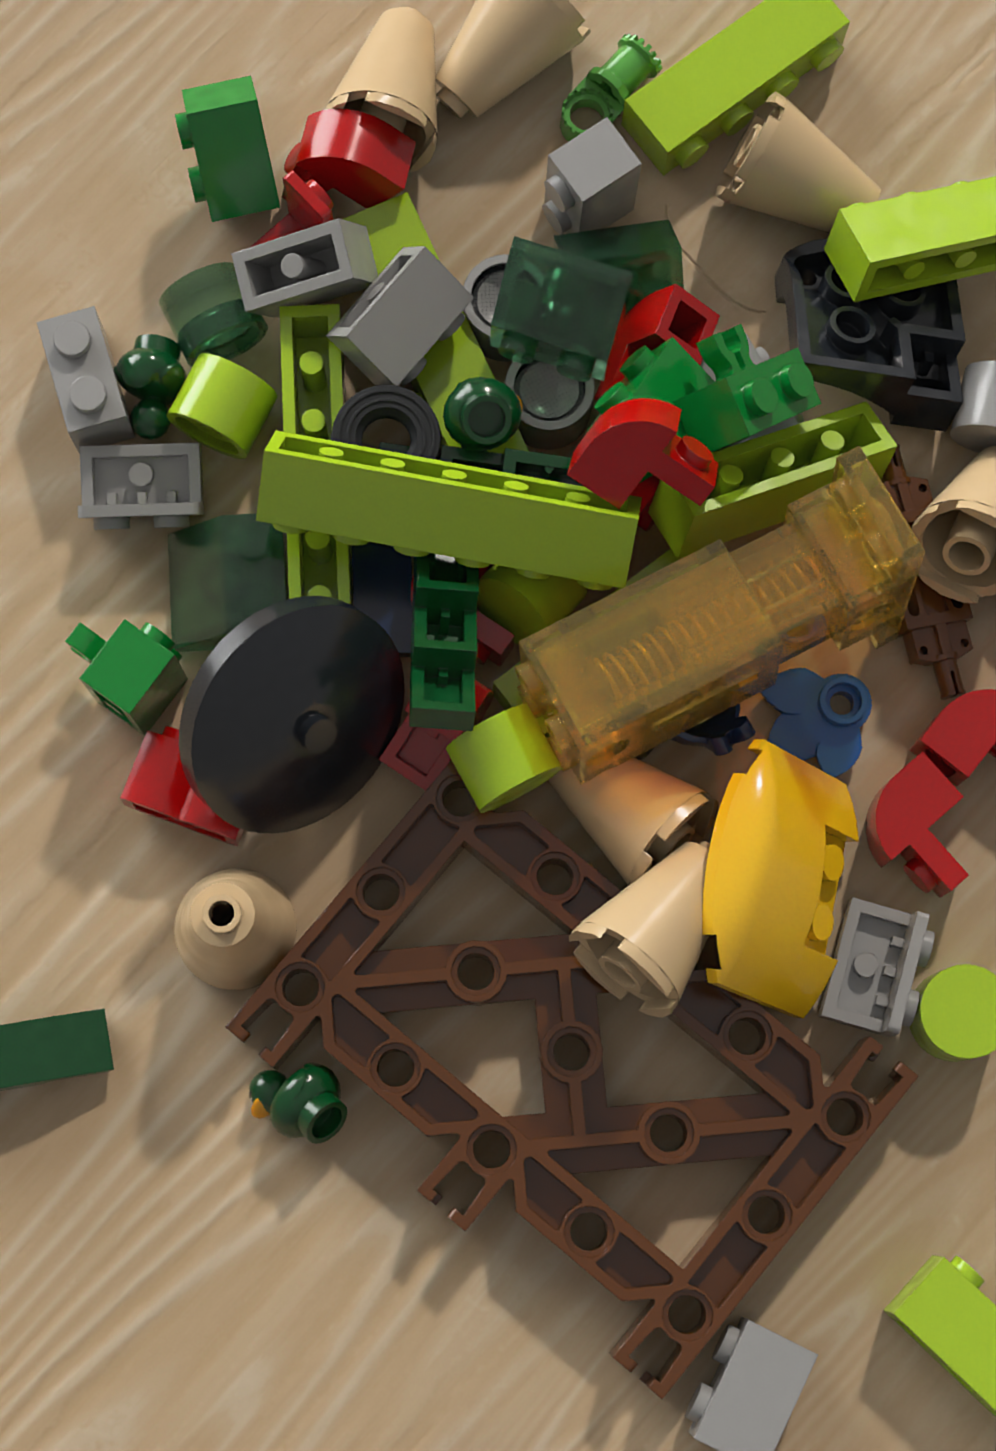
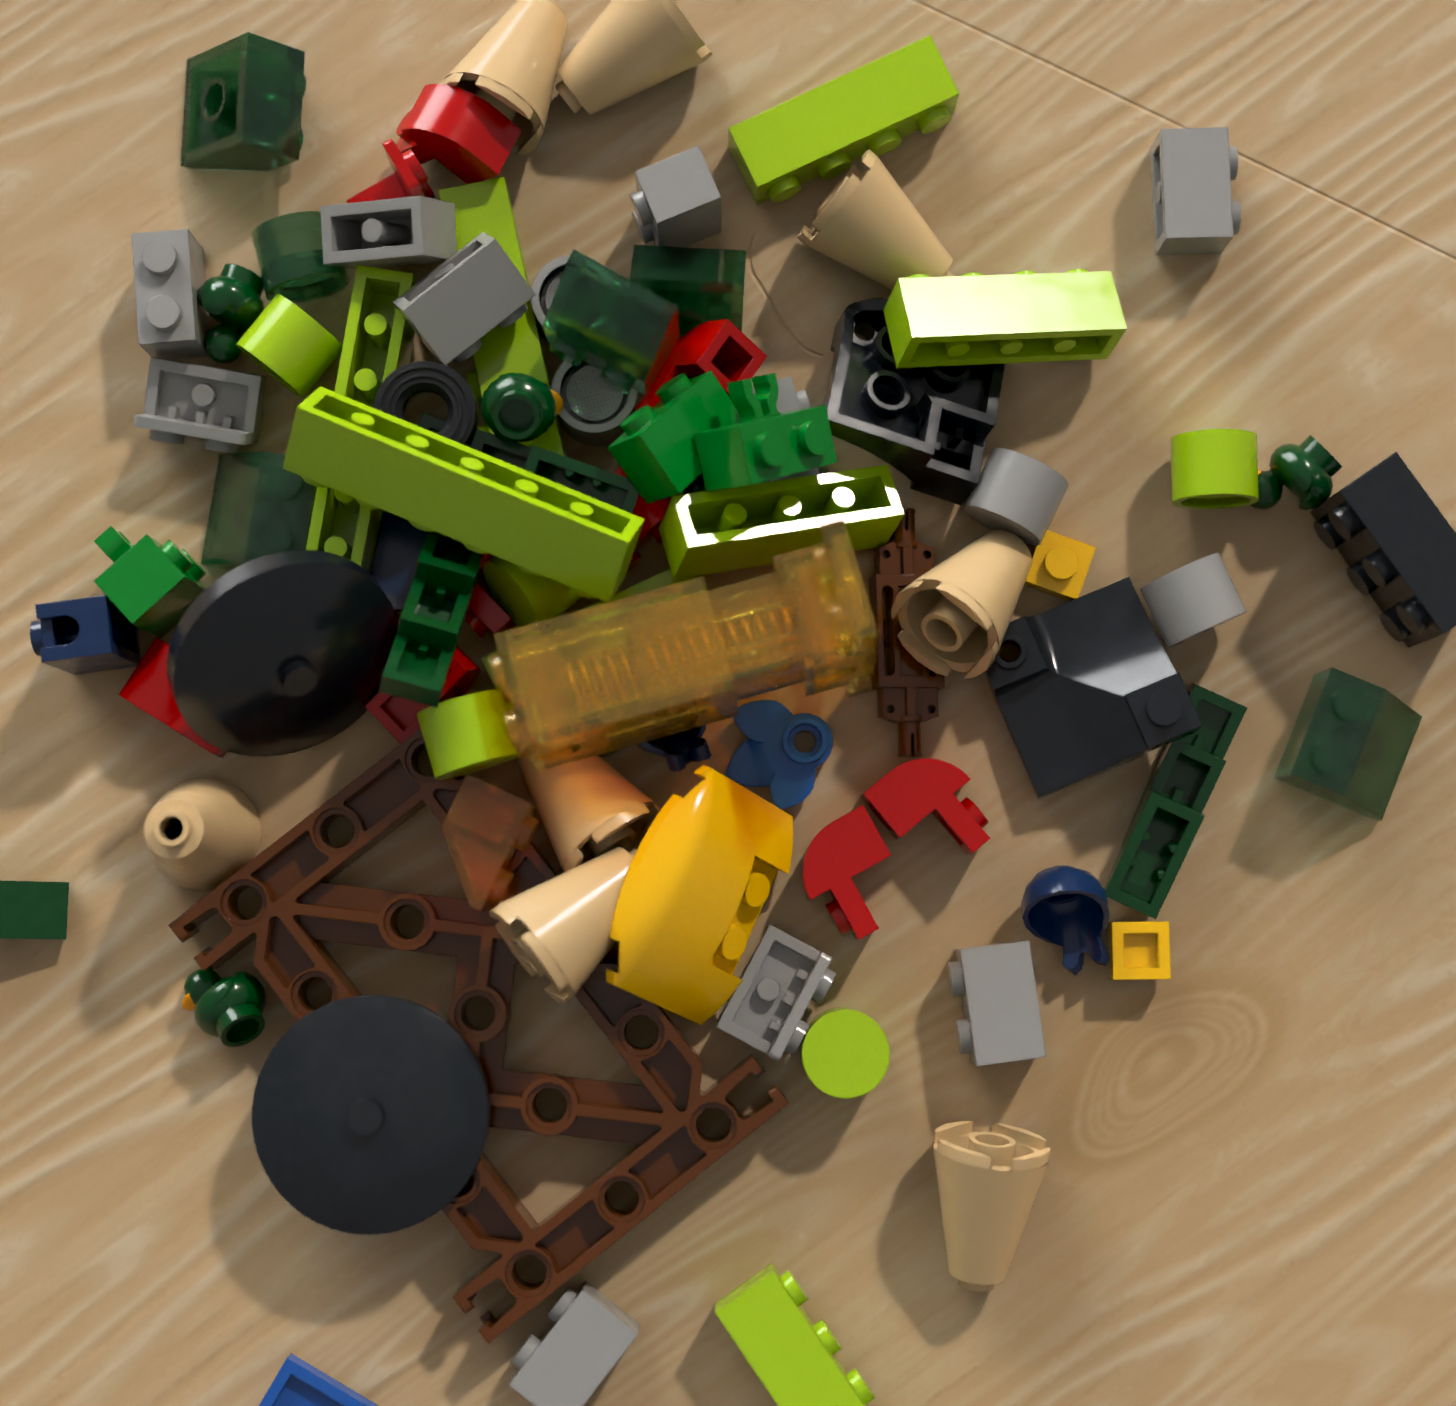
camera: 15 degrees right, 5 degrees up
(73, 742) = (84, 636): none -> dark blue brick
(119, 176) = (243, 106): none -> clear green slope
(230, 149) = (344, 101): green brick -> none
(485, 1180) = (371, 1114): none -> black dish
(540, 861) = (482, 837): none -> clear orange slope
(611, 84) = (723, 109): bright green connector -> none
(641, 439) = (648, 468): red brick -> none

